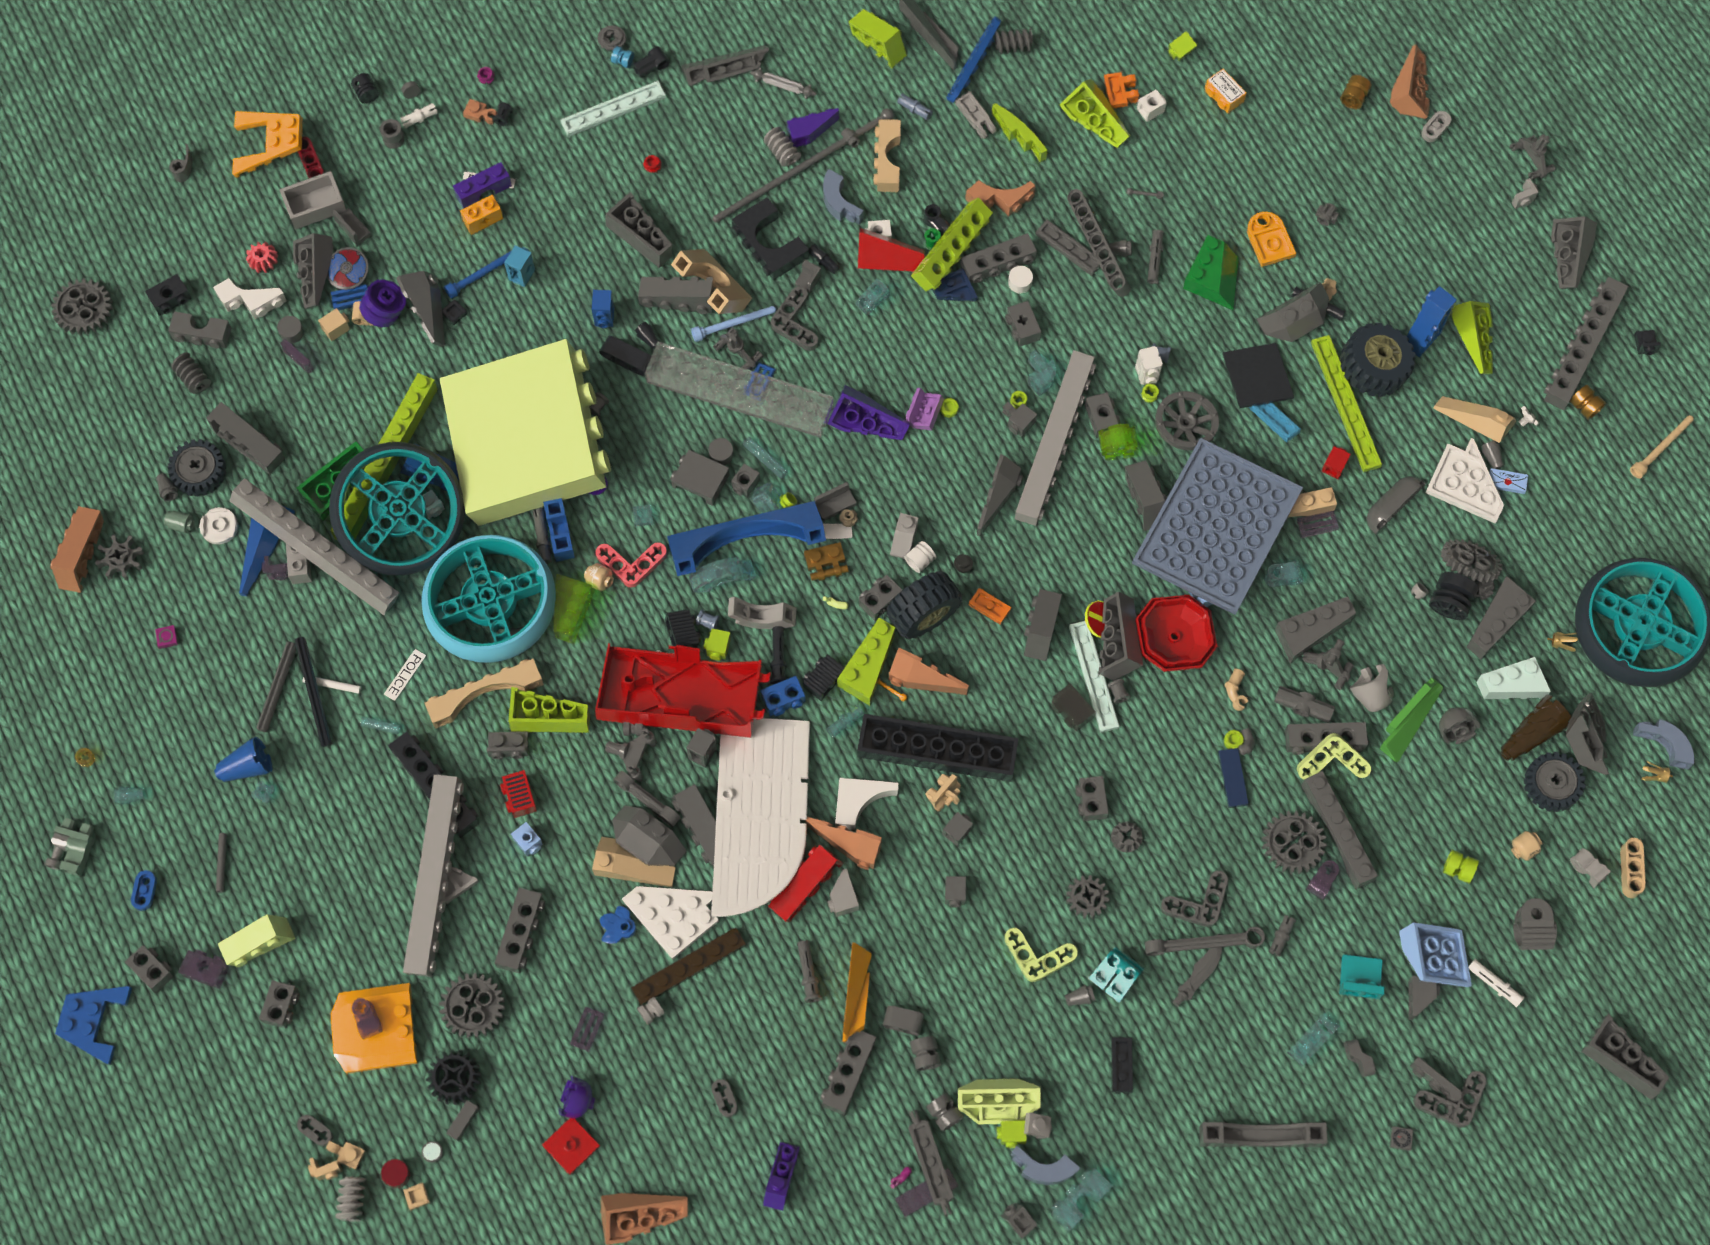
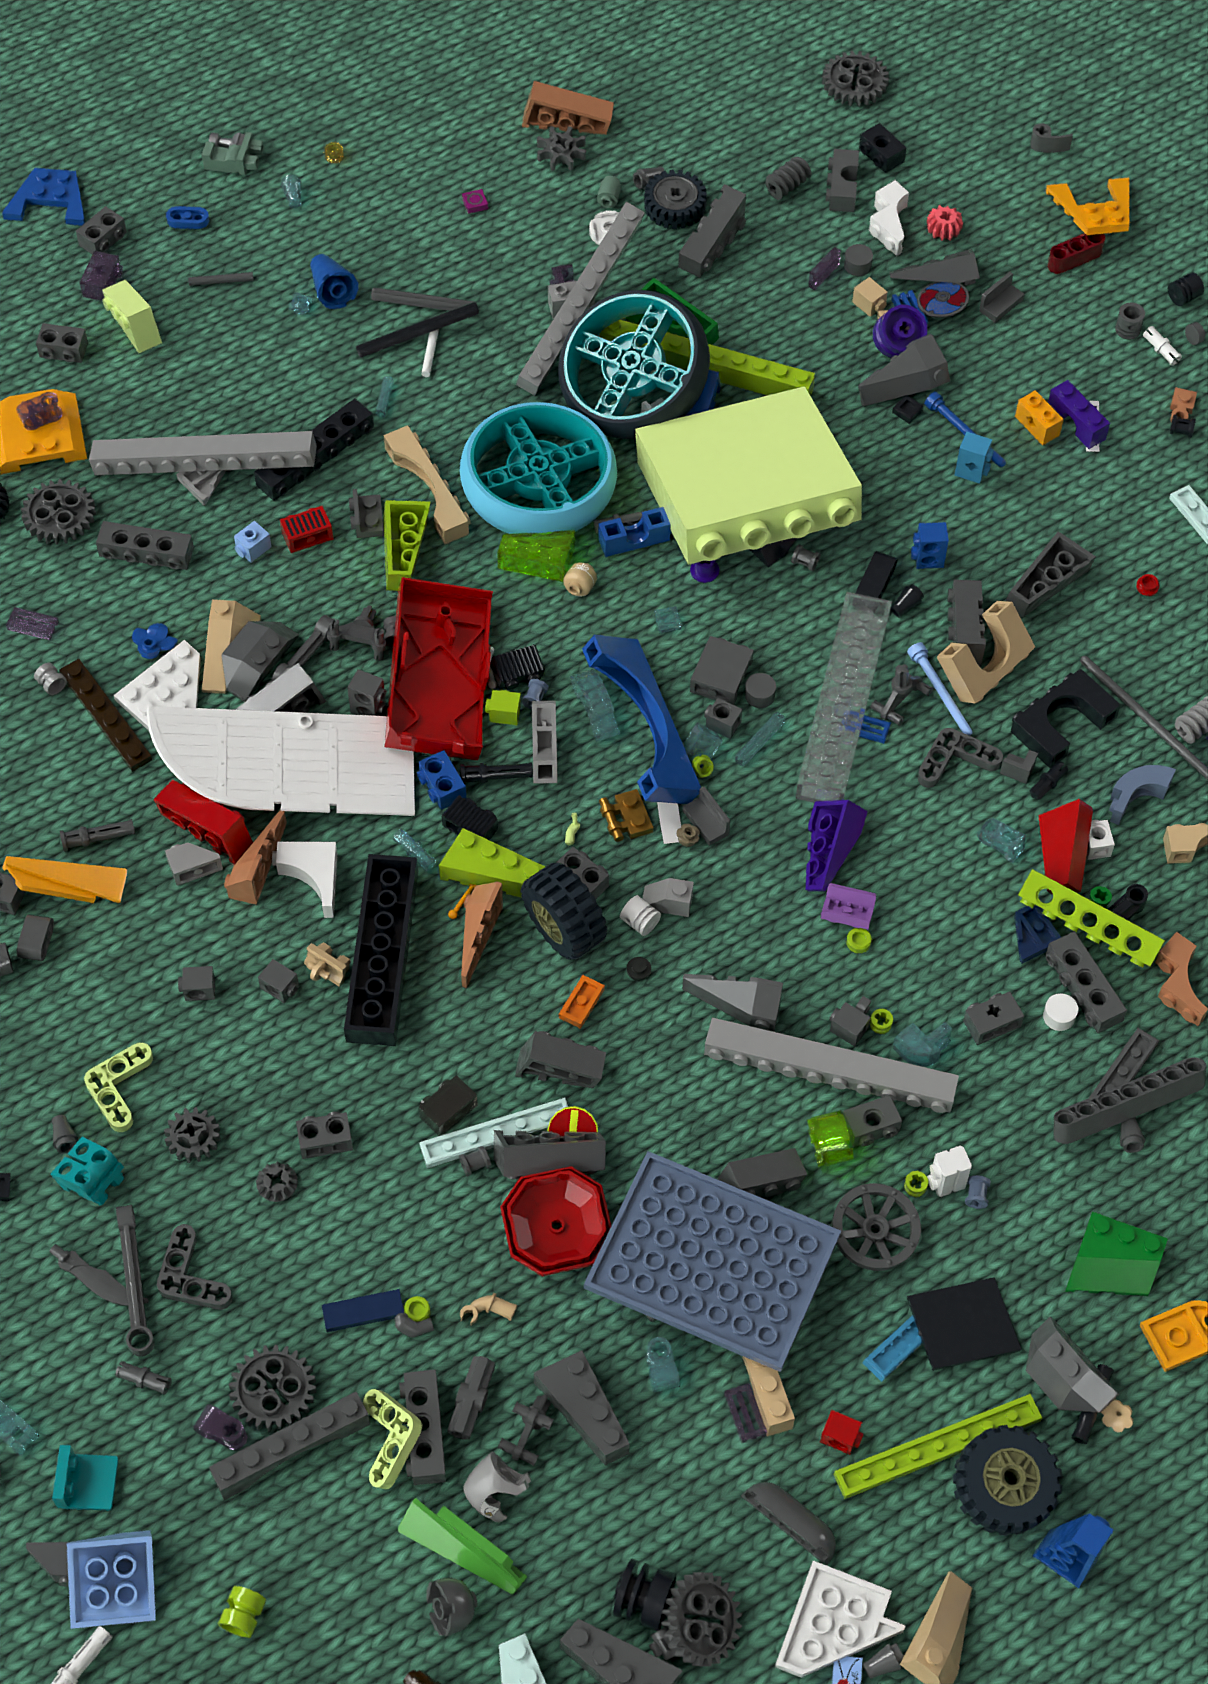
camera: 85 degrees right, 10 degrees down
(259, 544) = (621, 276): blue wedge -> none
(312, 200) = (1025, 254): light grey piece -> none
(404, 674) = (447, 414): white sticker -> none
(629, 569) = (596, 610): coral beam -> none
(1155, 256) = (1128, 1181): dark grey pin -> none
(1420, 591) = (661, 1553): light grey hinge -> none
(1473, 325) = (1080, 1634): lime wedge -> none

